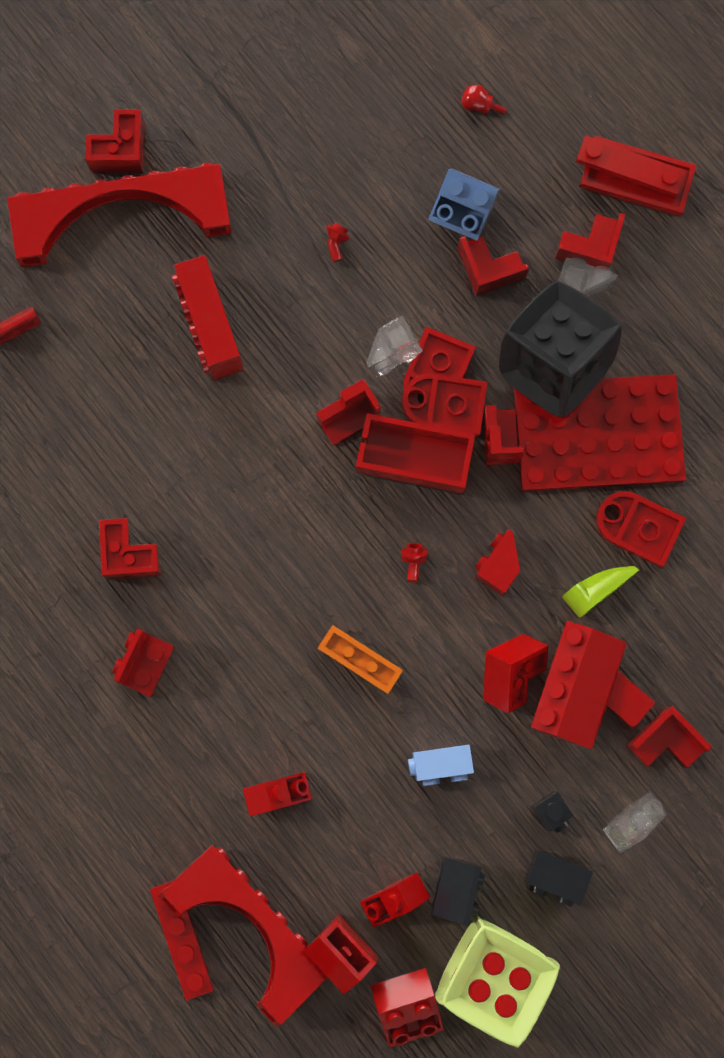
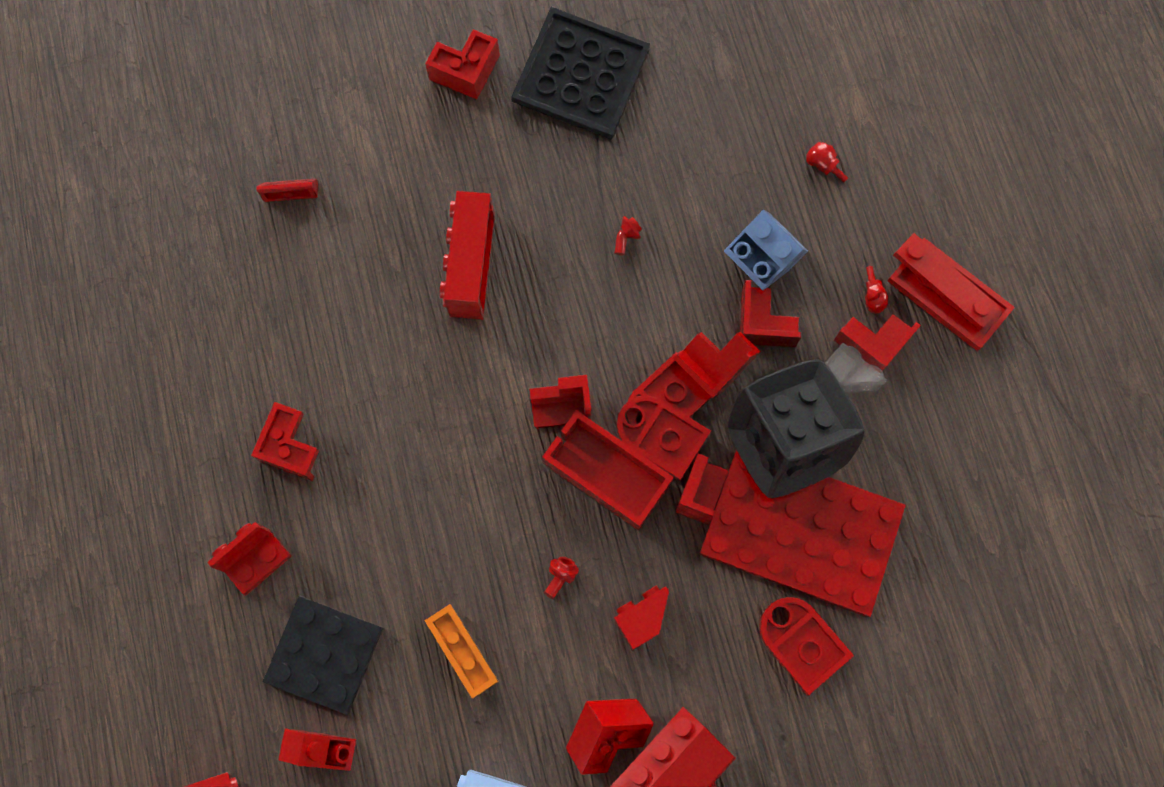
camera: 30 degrees right, 5 degrees down
(43, 216) = (365, 101): red arch -> none
(227, 109) = (580, 73): none -> black plate
(243, 715) = (323, 655): none -> black plate
(393, 346) = (634, 356): clear slope -> none
(467, 325) = (715, 368): none -> red panel
(576, 205) = (876, 297): none -> red piece
(595, 589) = (730, 686): lime piece -> none

